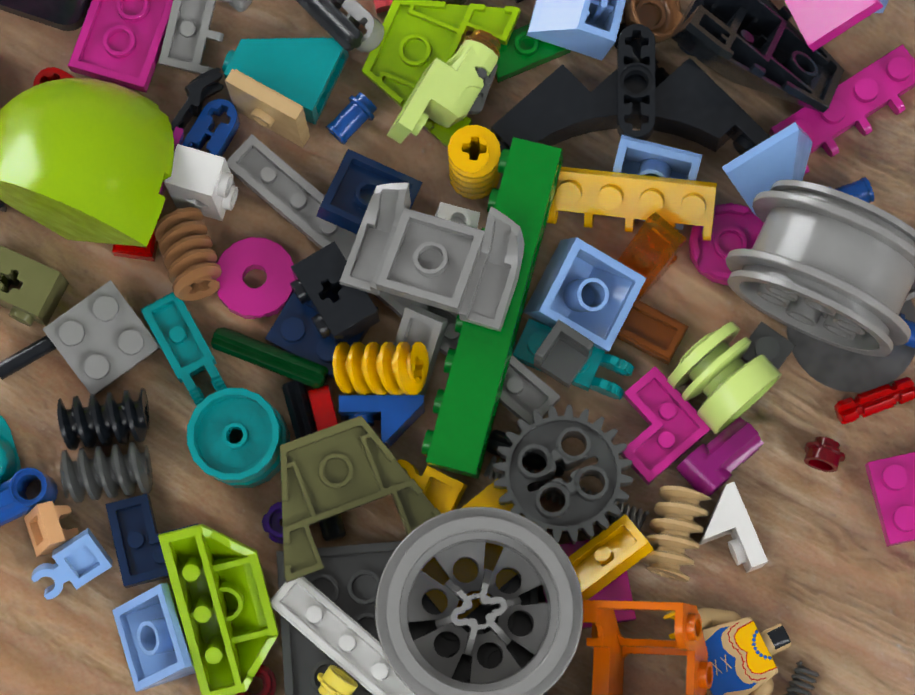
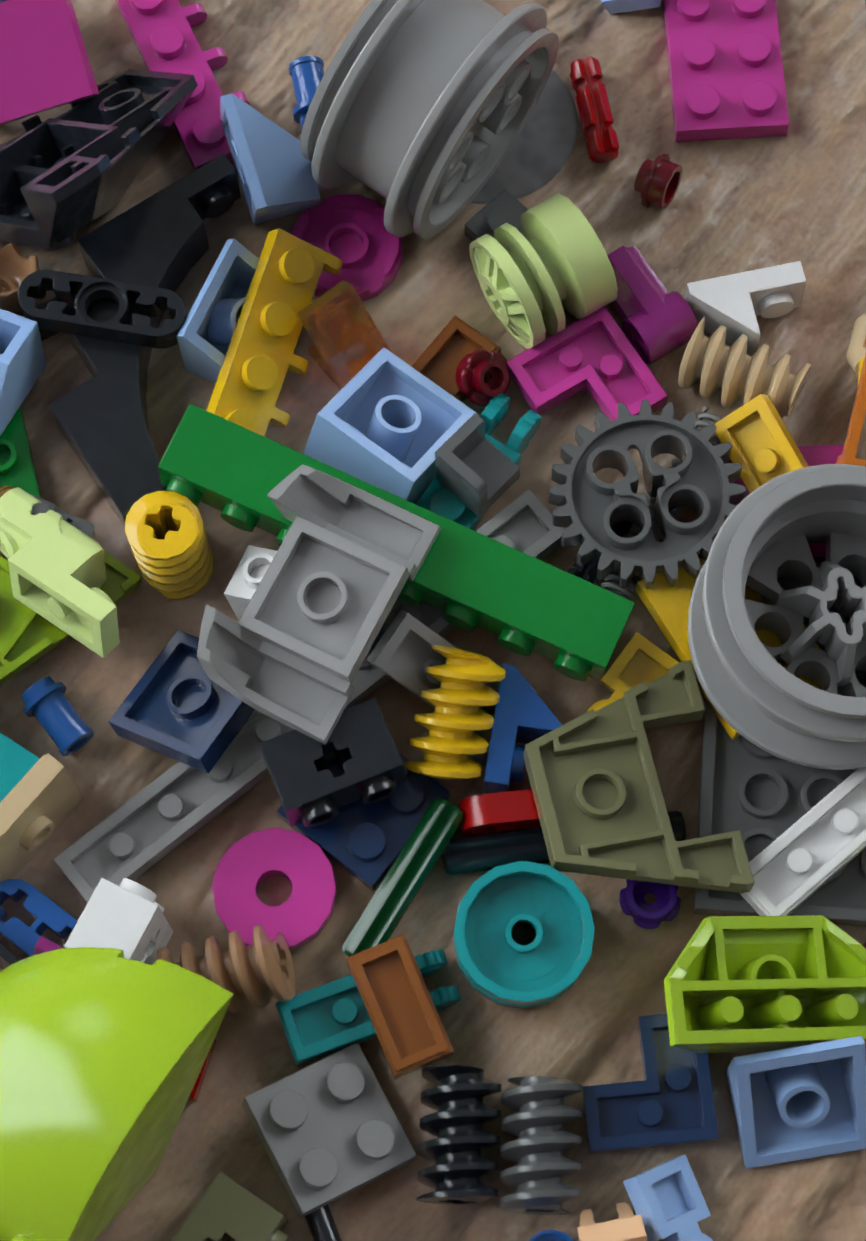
camera: 80 degrees left, 5 degrees down
(181, 366) = (399, 1006): none -> dark orange tile
(645, 343) = (471, 375): none -> dark red plate

